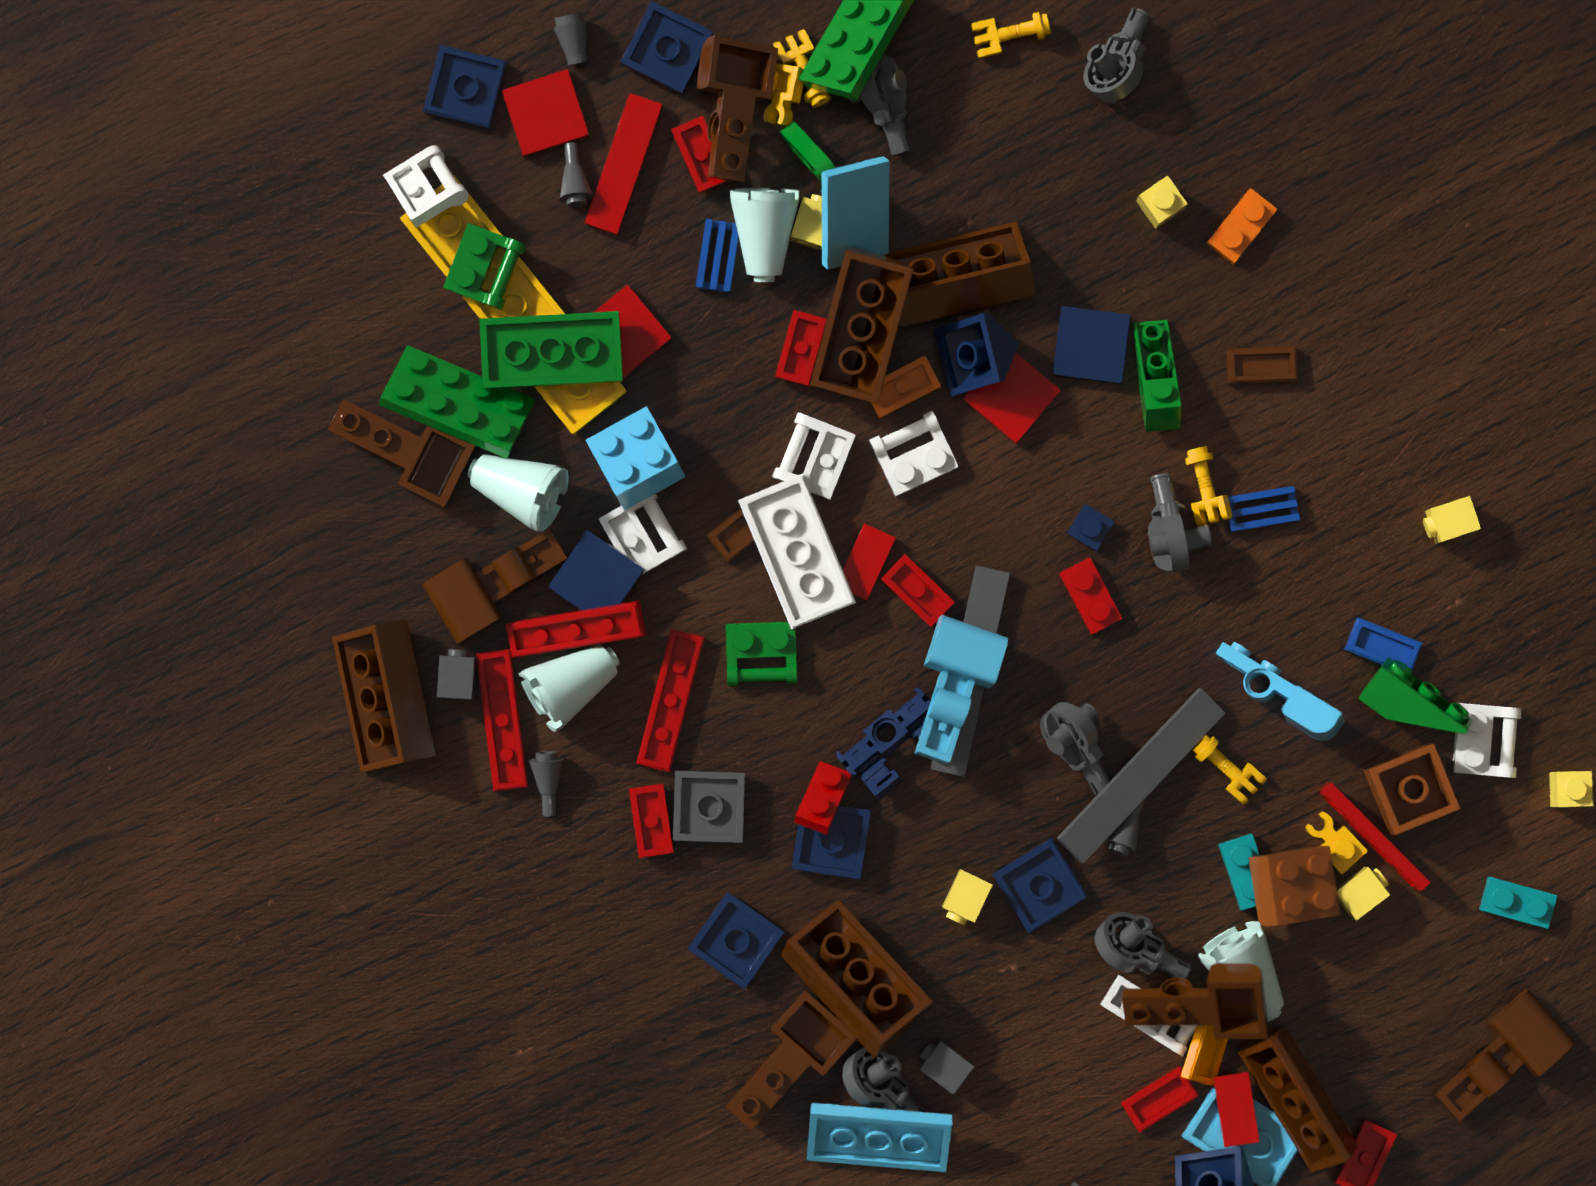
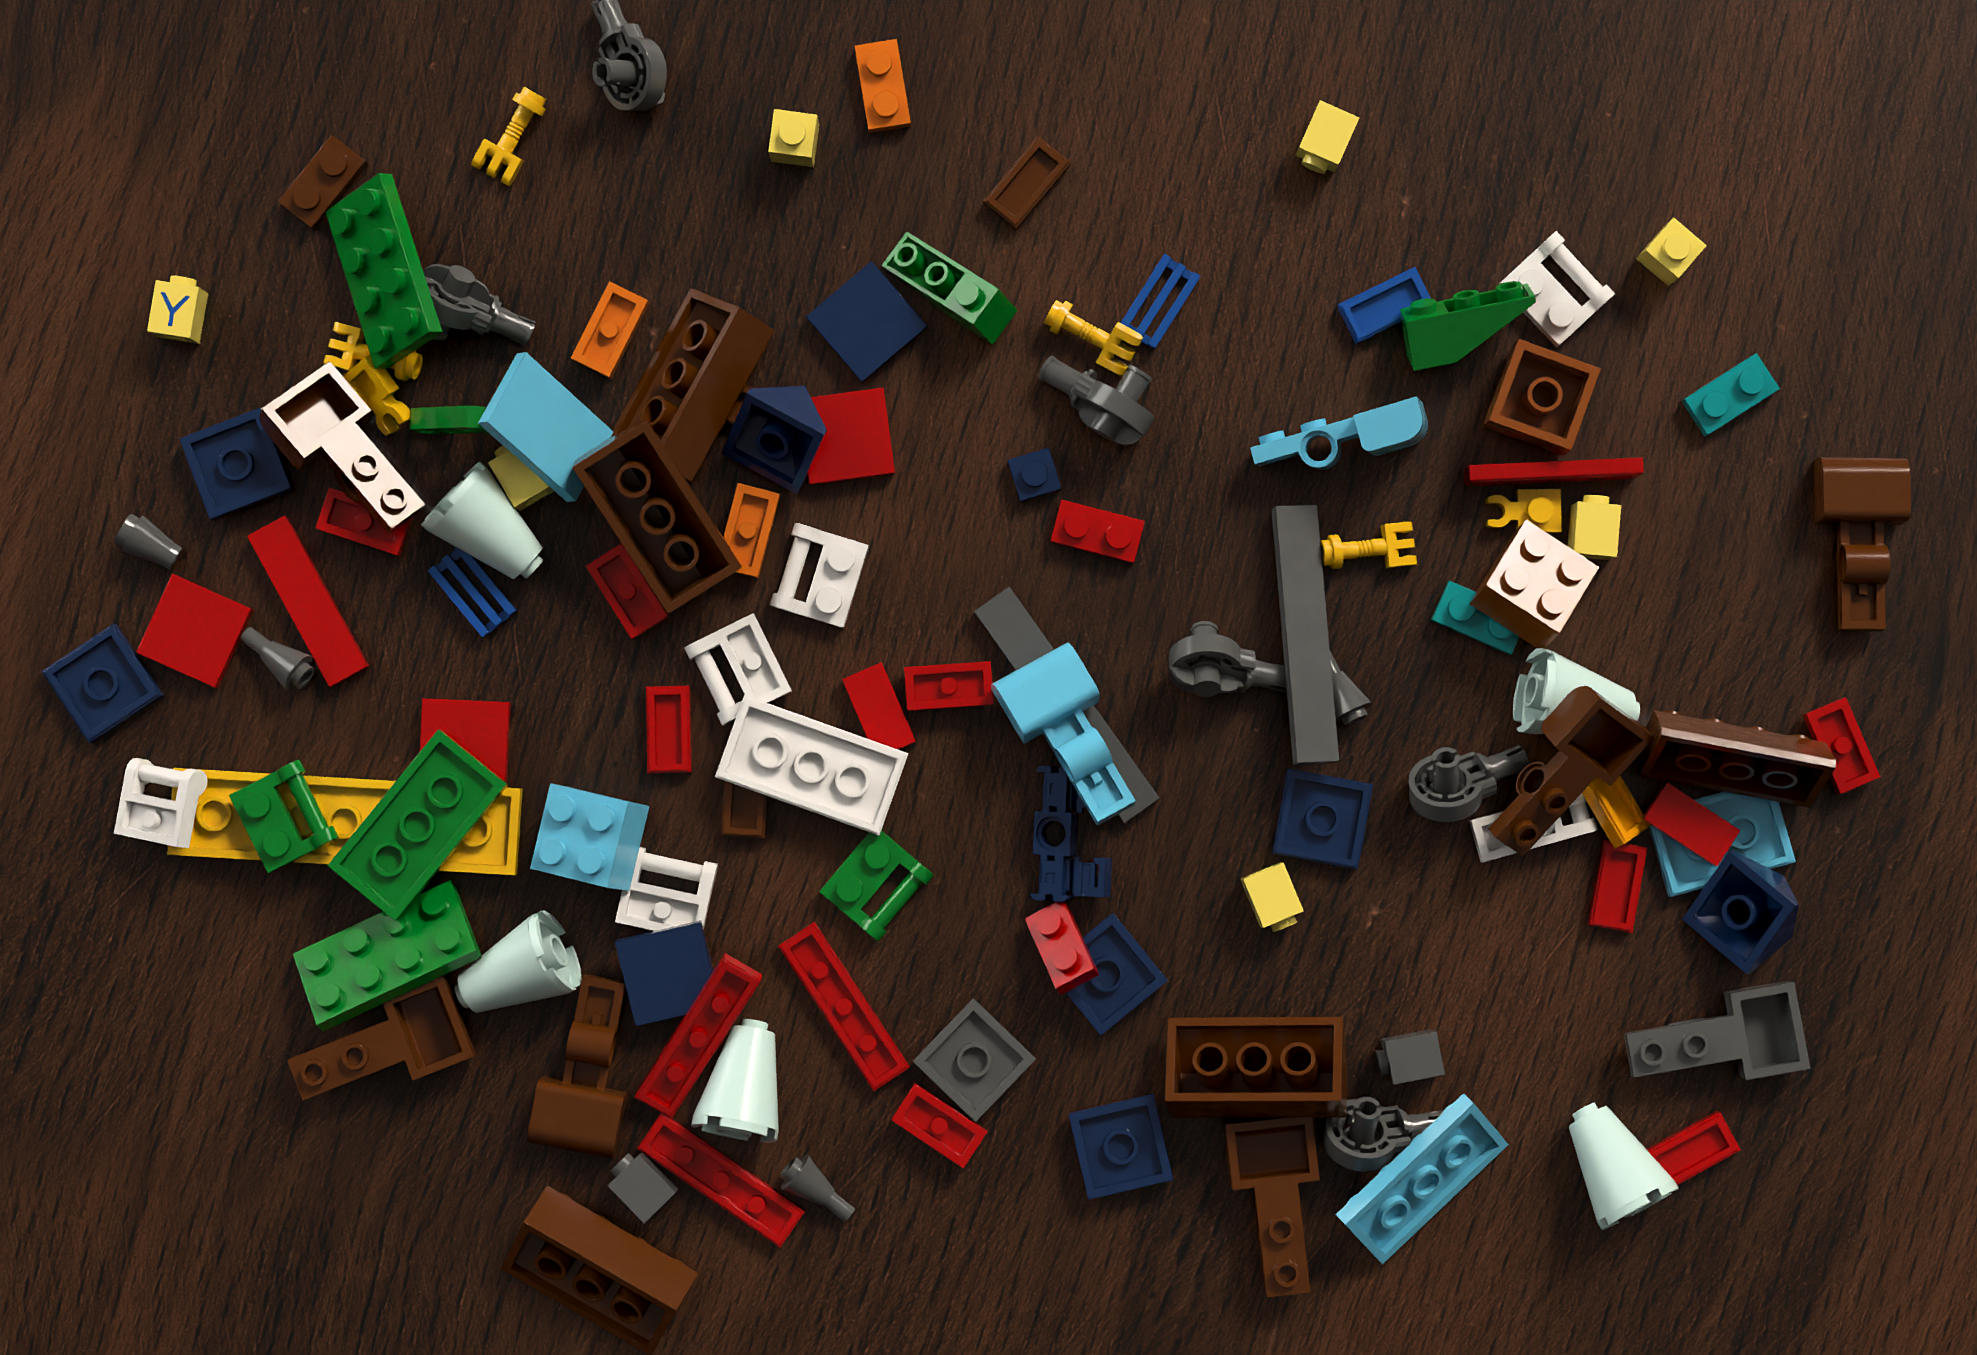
camera: 50 degrees left, 0 degrees up
(740, 447) = (668, 729): none -> red tile
(947, 196) = (610, 330): none -> orange plate

